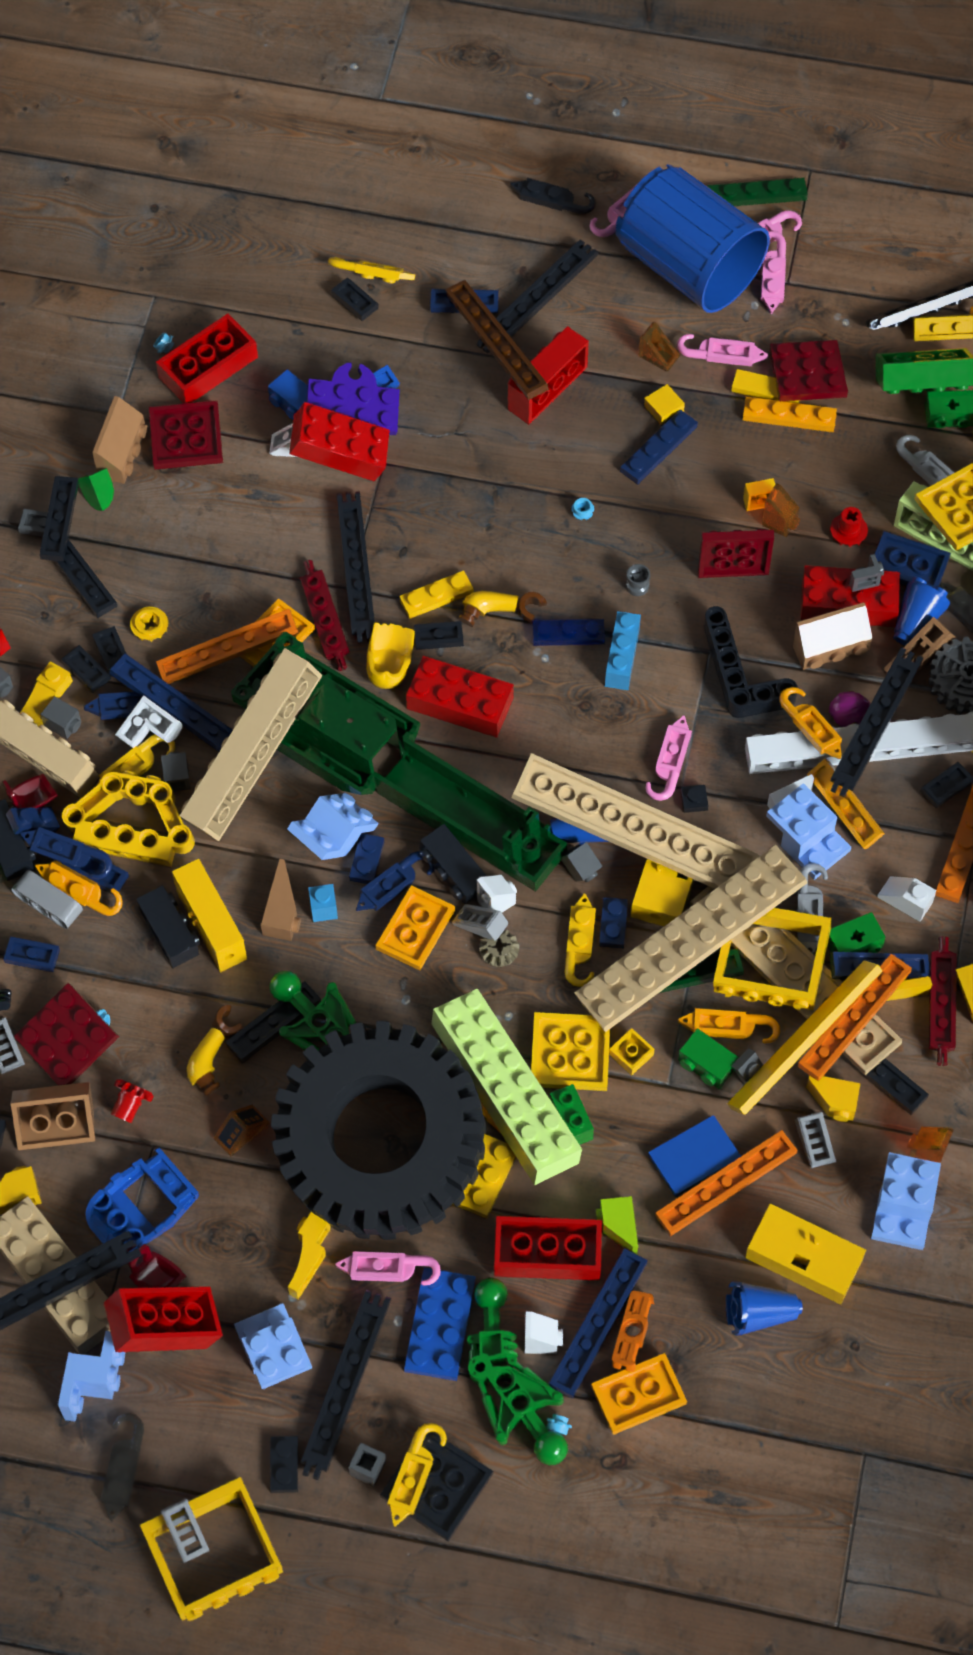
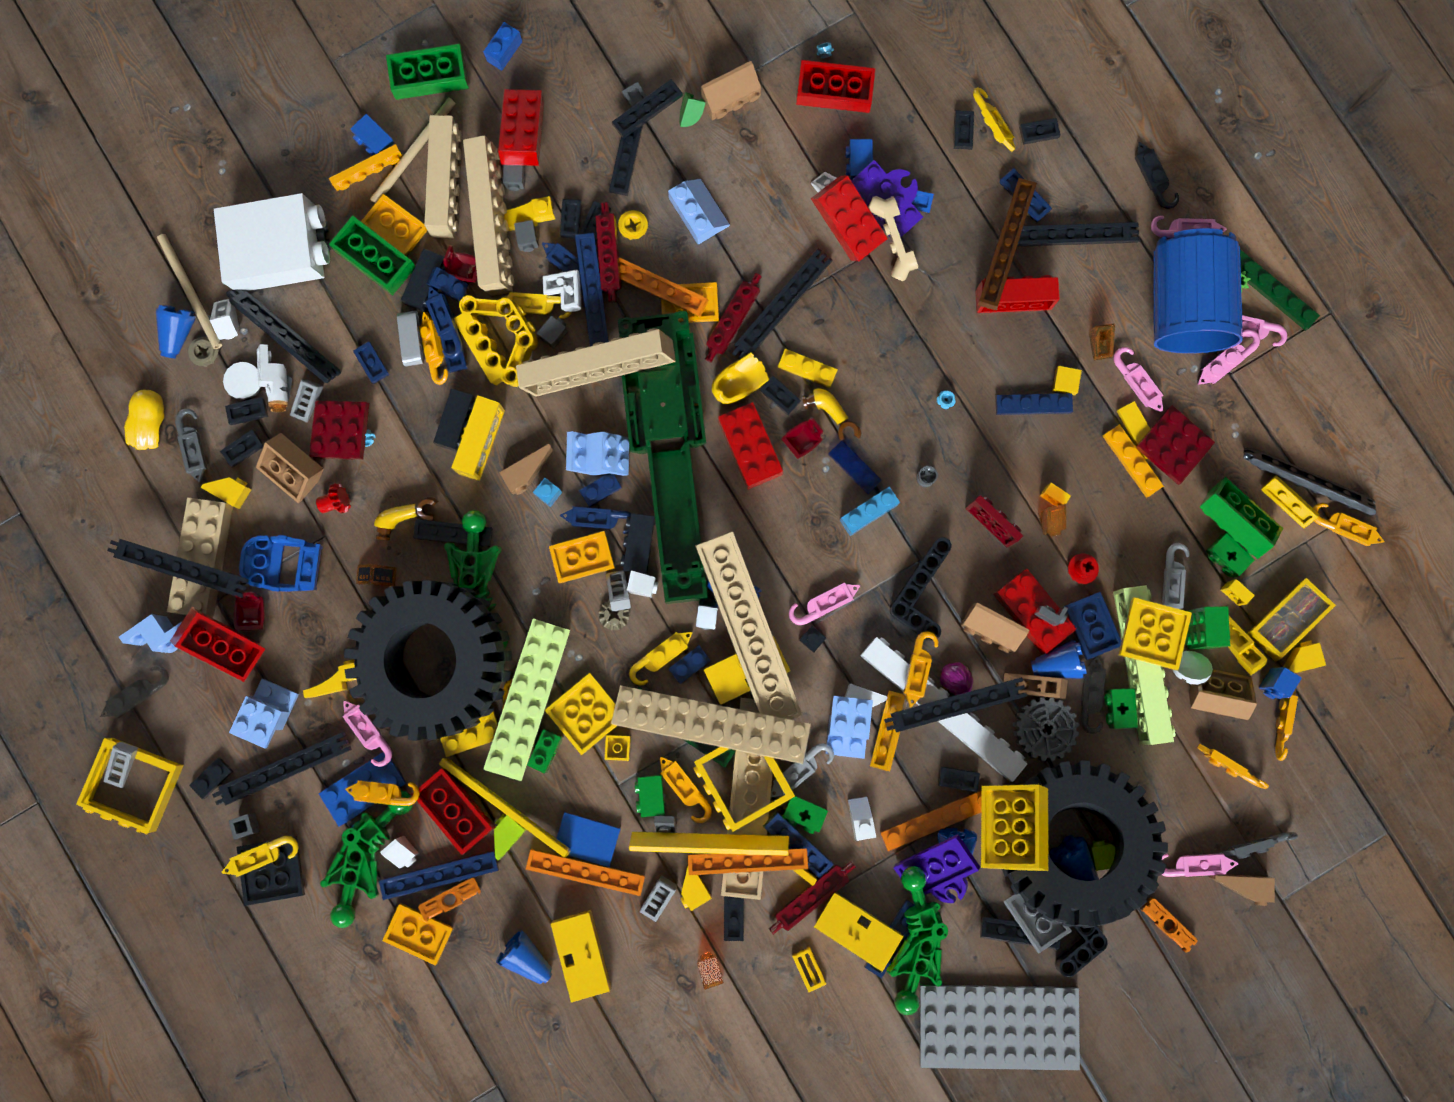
camera: 45 degrees right, 20 degrees up
(155, 659) = (608, 252): none -> dark red plate
(185, 435) = (775, 123): dark red plate -> none
(194, 561) = (697, 209): none -> light blue slope
(419, 245) = (1039, 131): none -> black plate
(424, 435) = (906, 260): none -> tan plate
(465, 1297) = (381, 793): none -> light orange plate
(498, 649) = (803, 438): none -> dark red piece
(558, 1424) = (360, 906): medium azure plate -> none
(592, 1197) = (505, 807): none -> yellow tile
(906, 1201) = (663, 986): light blue bracket -> none

